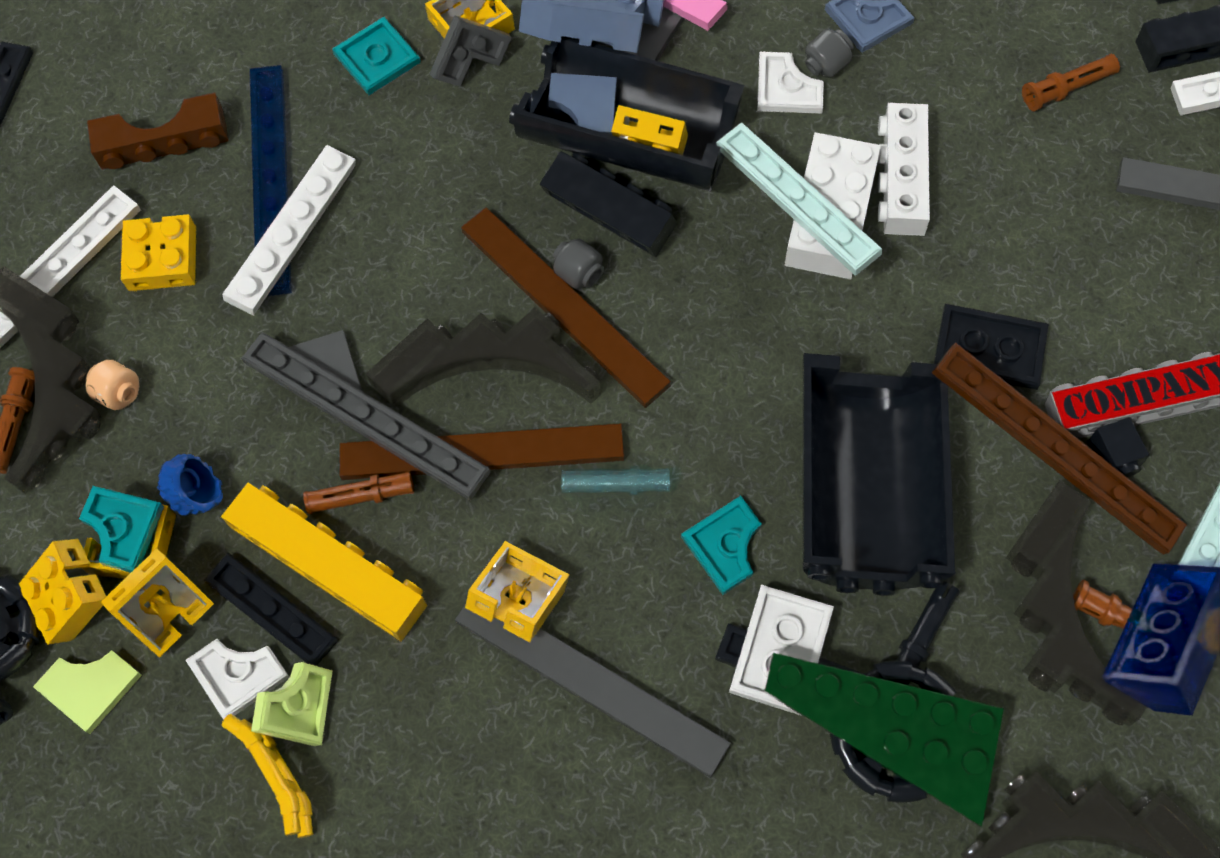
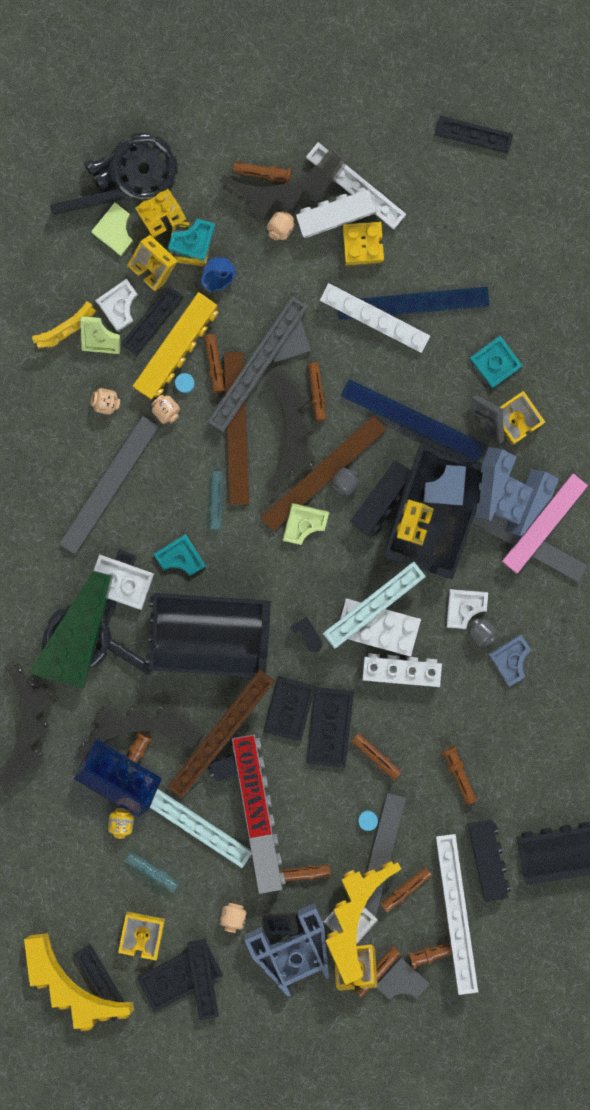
camera: 85 degrees right, 20 degrees up
(25, 739) = (87, 201): none -> black tile
(98, 287) = (336, 213): none -> white brick
(195, 126) = (447, 259): reddish brown arch -> none
(394, 546) = (184, 383): none -> medium azure tile
(411, 318) = (316, 391): none -> dark orange pin
(424, 691) = (105, 401): none -> light nougat head
(443, 575) = (165, 409): none -> light nougat head
(466, 177) = (413, 420): none -> clear blue tile
(524, 582) = (160, 453): yellow piece -> none
(652, 333) = (302, 522): none -> yellowish green tile
(853, 314) = (312, 639): none -> black leg
(1016, 279) = (330, 727): none -> black tile
(1066, 194) = (393, 772): none -> dark orange pin
(1171, 215) = (367, 820): none -> medium azure tile

